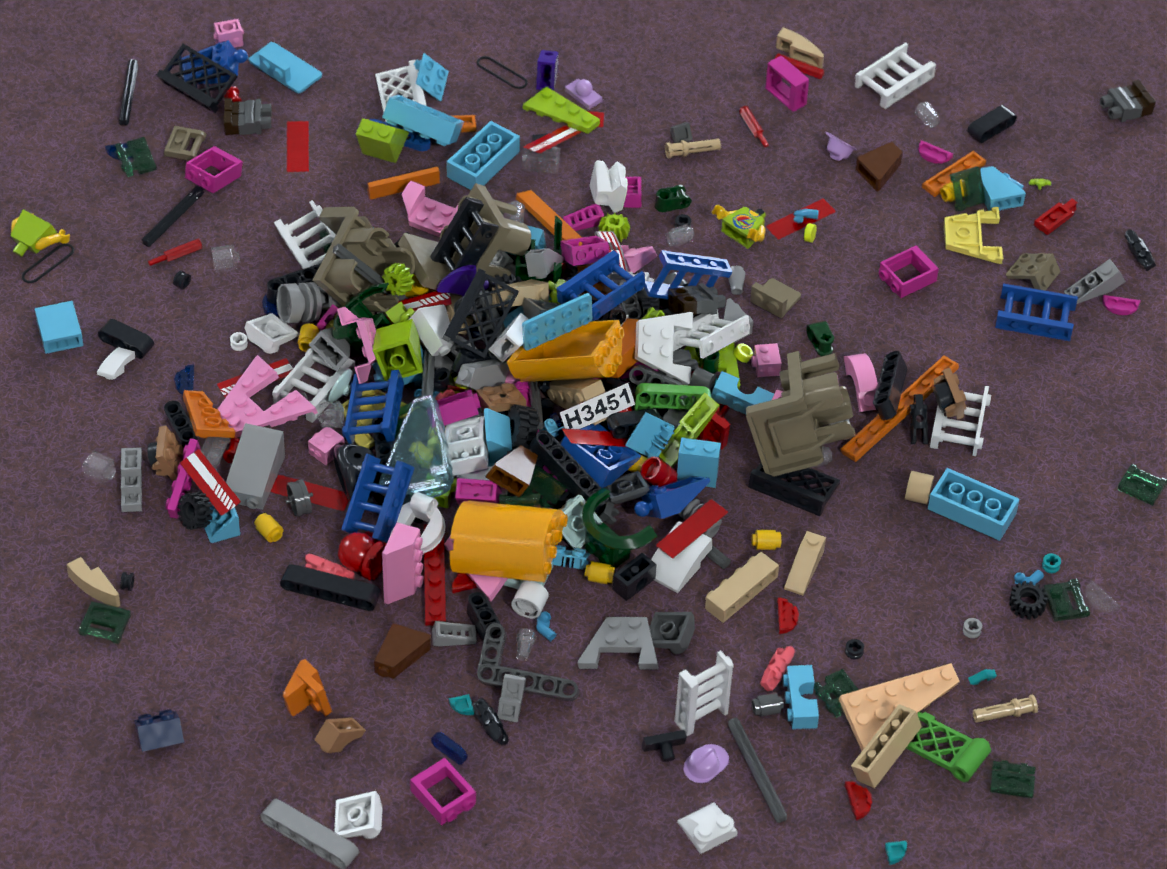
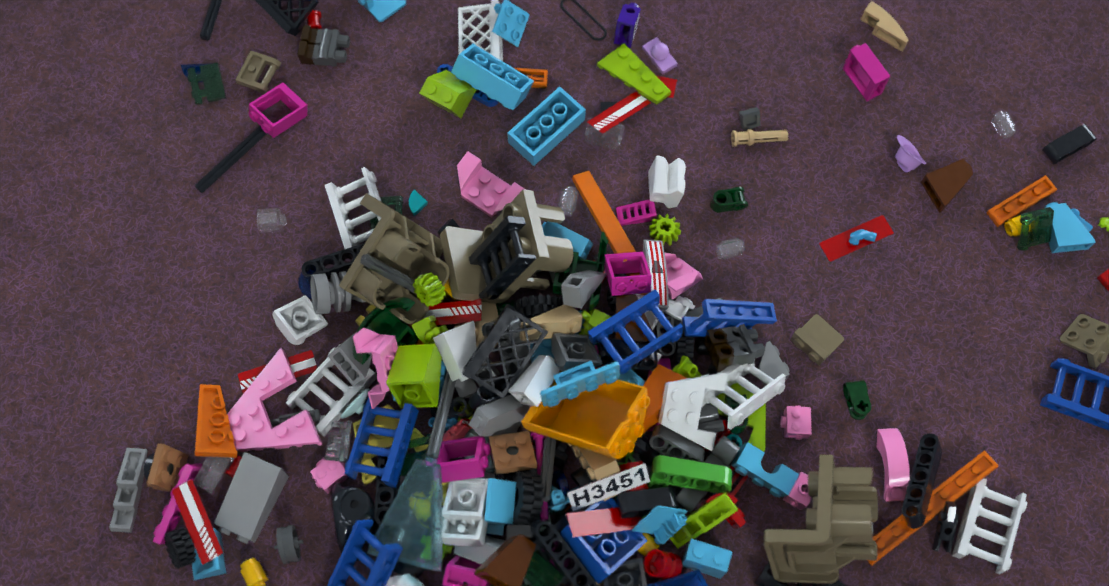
camera: 10 degrees right, 20 degrees up
(32, 281) = (93, 197): black piece -> none
(34, 234) = (89, 167): lime torso -> none
(58, 327) = (92, 285): medium azure brick -> none
(99, 467) = (98, 472): clear brick -> none
(114, 363) = (139, 338): white slope -> none
(126, 337) = (156, 308): black beam -> none
(178, 252) = (227, 204): red axle -> none
(179, 422) = (183, 423): black beam -> none
(182, 279) = (224, 241): black bush -> none
(185, 379) = (206, 366): clear blue tile -> none
(235, 338) = (269, 330): white bush -> none
(297, 146) = (368, 86): red sticker -> none
(306, 335) = (335, 331): yellow brick -> none
(321, 495) = (307, 527): red sticker -> none
(328, 316) = (357, 313): dark pink tile -> none
(398, 183) = (462, 147): orange tile -> none
(459, 280) = (495, 299): dark purple arm -> none
(633, 195) = (690, 194): dark pink slope -> none
(682, 219) = (737, 225): black bush -> none
(737, 279) = (781, 310): light grey cone -> none
(742, 224) = (797, 243): torso -> none
(743, 353) = (774, 408): neon yellow tile -> none
(753, 124) = (824, 115): red axle -> none
(804, 67) = (880, 46): red axle -> none
(810, 233) = (863, 261): neon yellow tile -> none
(899, 88) = (980, 87): white fence -> none
(919, 260) = (974, 316): dark pink window -> none
(934, 154) = (1002, 172): dark pink tile -> none
(948, 395) = (984, 512): medium nougat piece -> none
(965, 235) = (1024, 284): light yellow wing -> none

